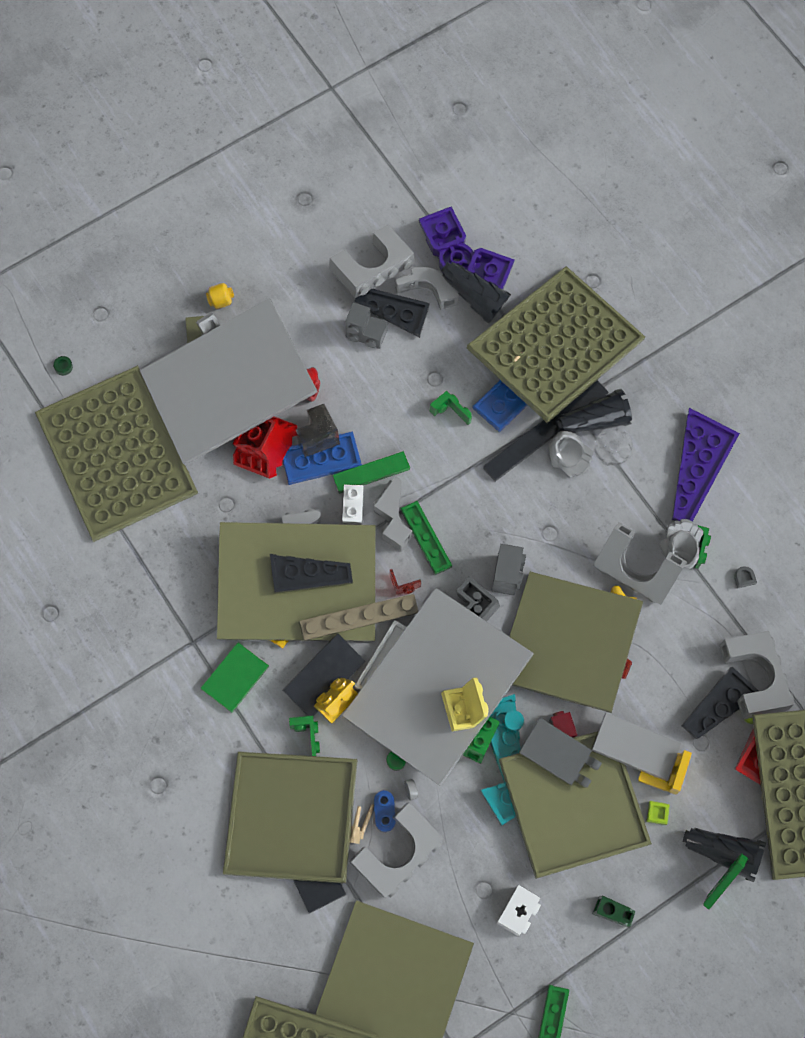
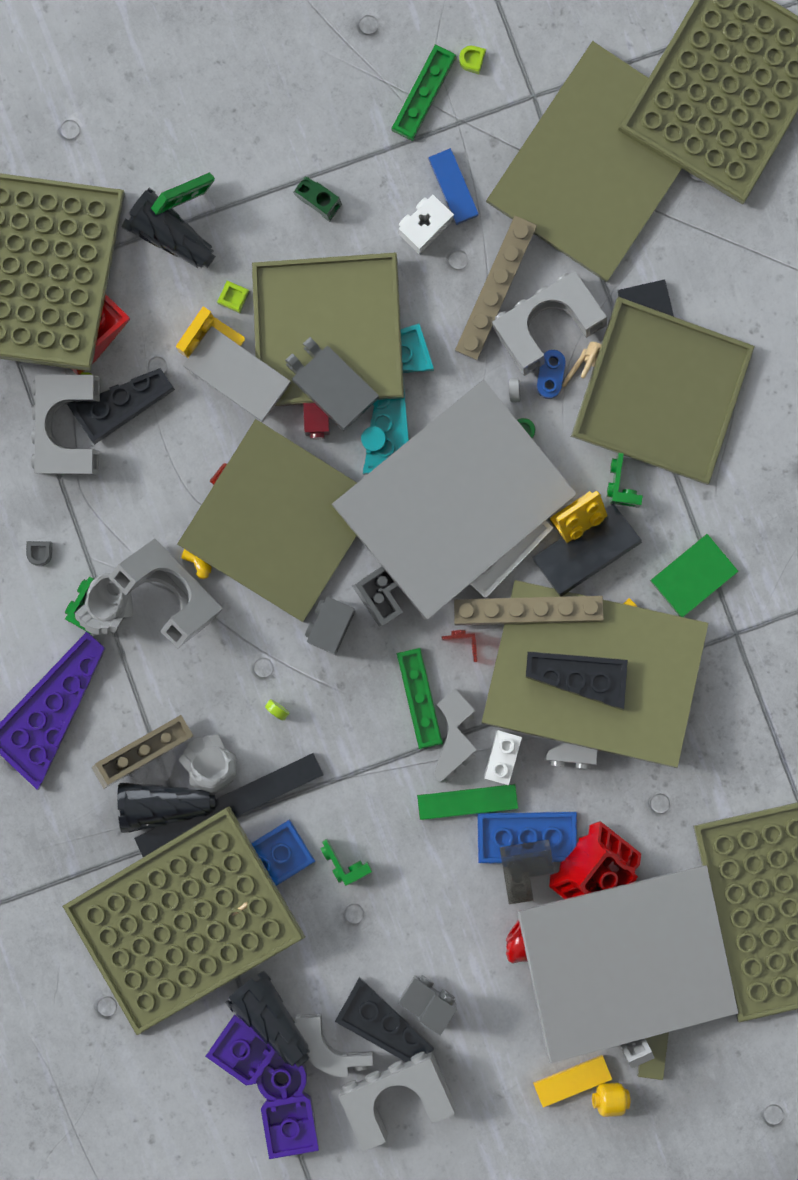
camera: 160 degrees left, 15 degrees up
(250, 300) = (572, 1081): none -> yellow tile
(447, 871) = (495, 287): none -> dark tan plate
(465, 705) = (432, 457): light yellow bracket -> none
(481, 742) = (418, 420): green bracket -> none
(504, 951) = (453, 186): none -> blue tile
(531, 503) = (277, 710): none -> lime tile
(622, 447) = (141, 751): none -> dark tan slope

